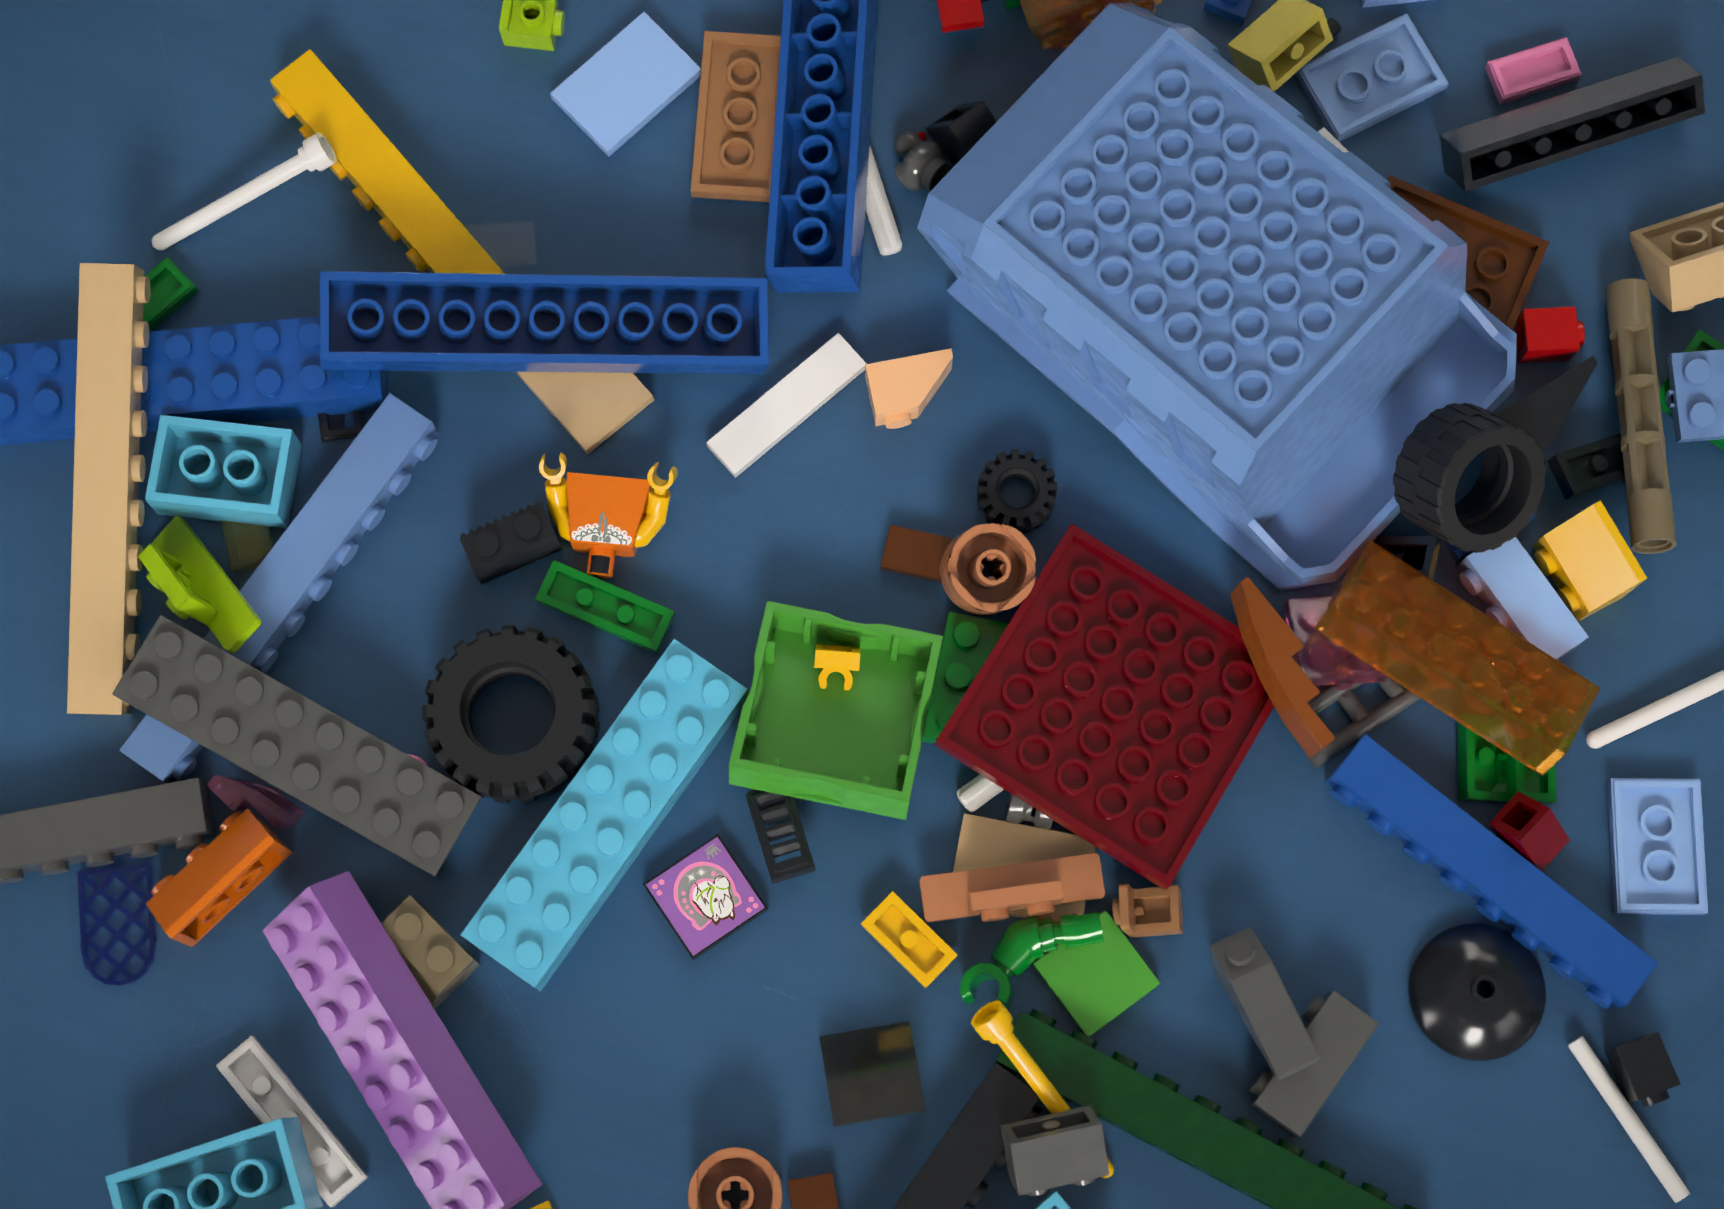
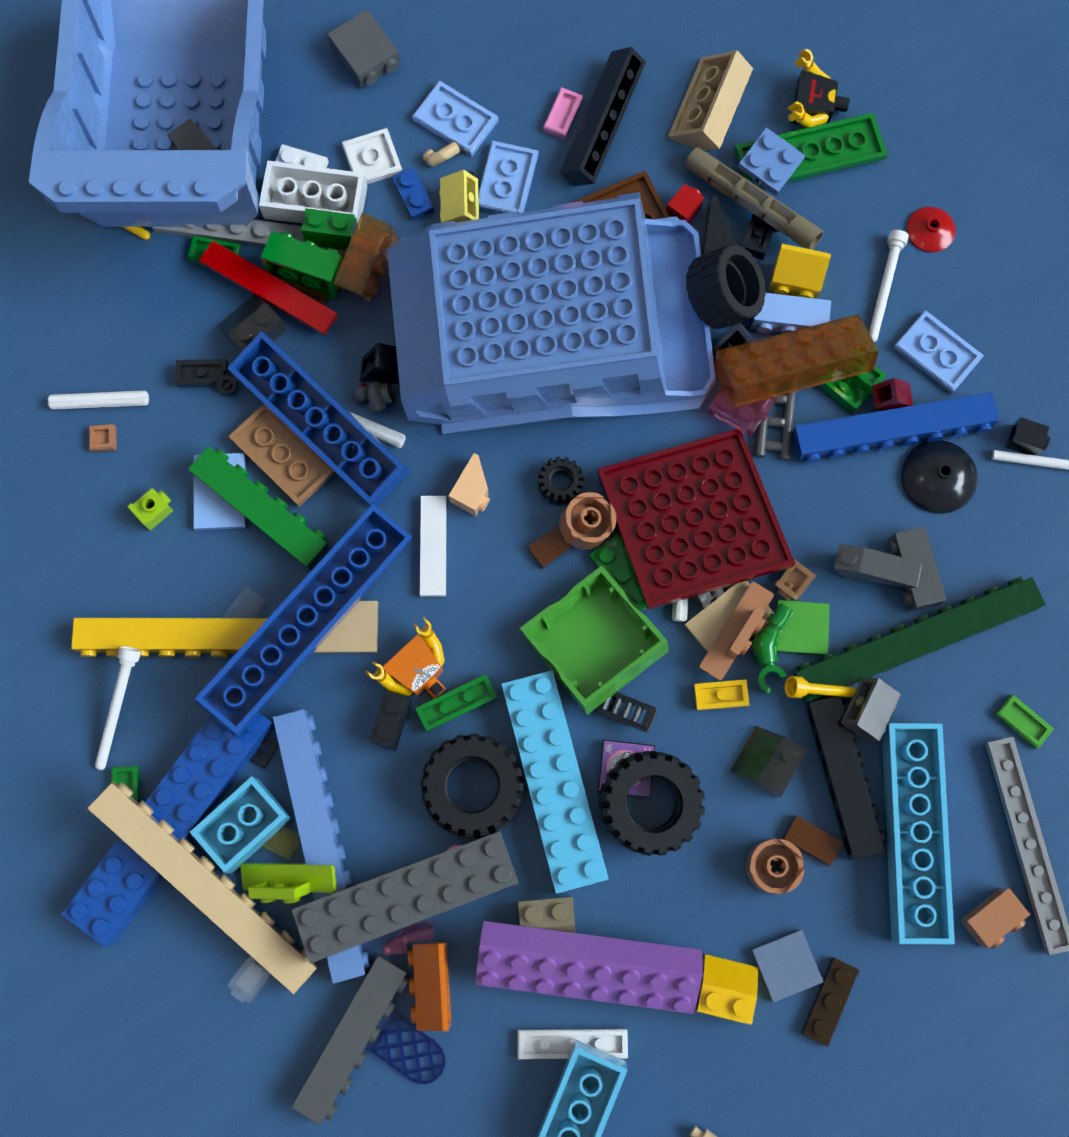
camera: 50 degrees left, 0 degrees up
(39, 647) = (249, 980): none -> clear brick
(619, 961) = (686, 812): none -> black tyre
(644, 146) = (258, 507): none -> green brick
(836, 659) = (570, 620): yellow tile -> none
(1272, 650) = (728, 433): dark orange slope -> none

